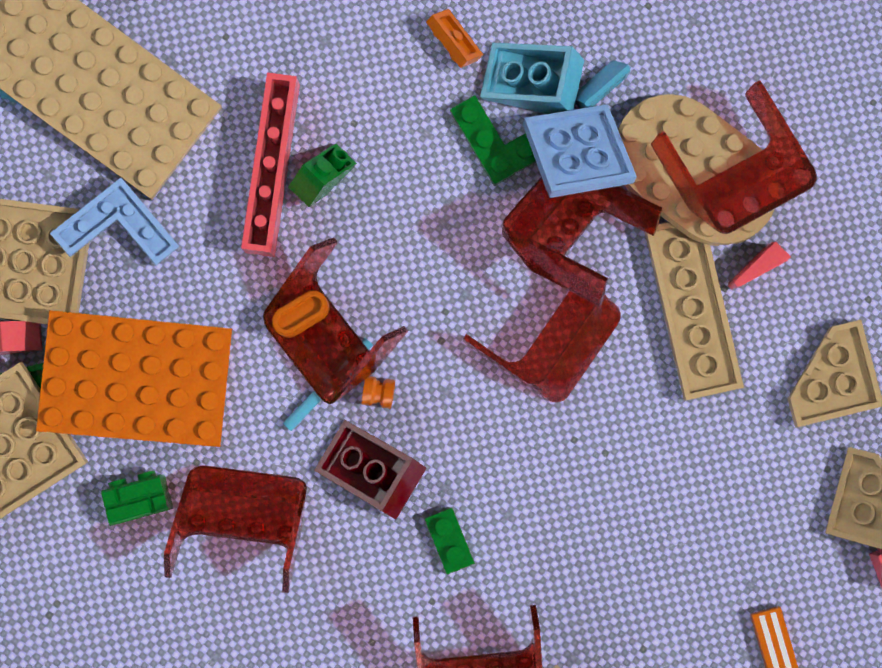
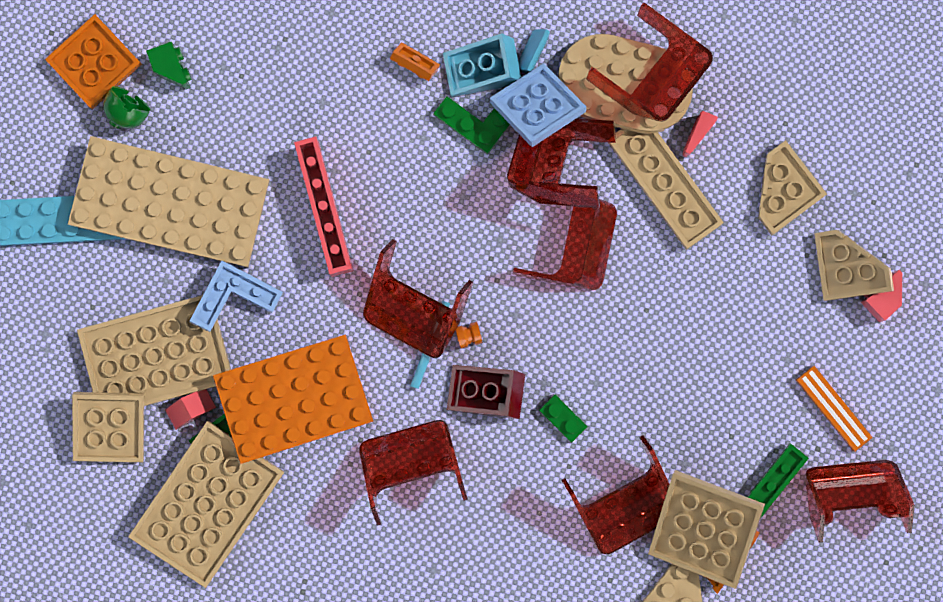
camera: 20 degrees left, 0 degrees up
(136, 499) = (330, 482): green brick -> none
(300, 314) = (391, 302): orange tile -> none
(321, 174) = (362, 198): green slope -> none

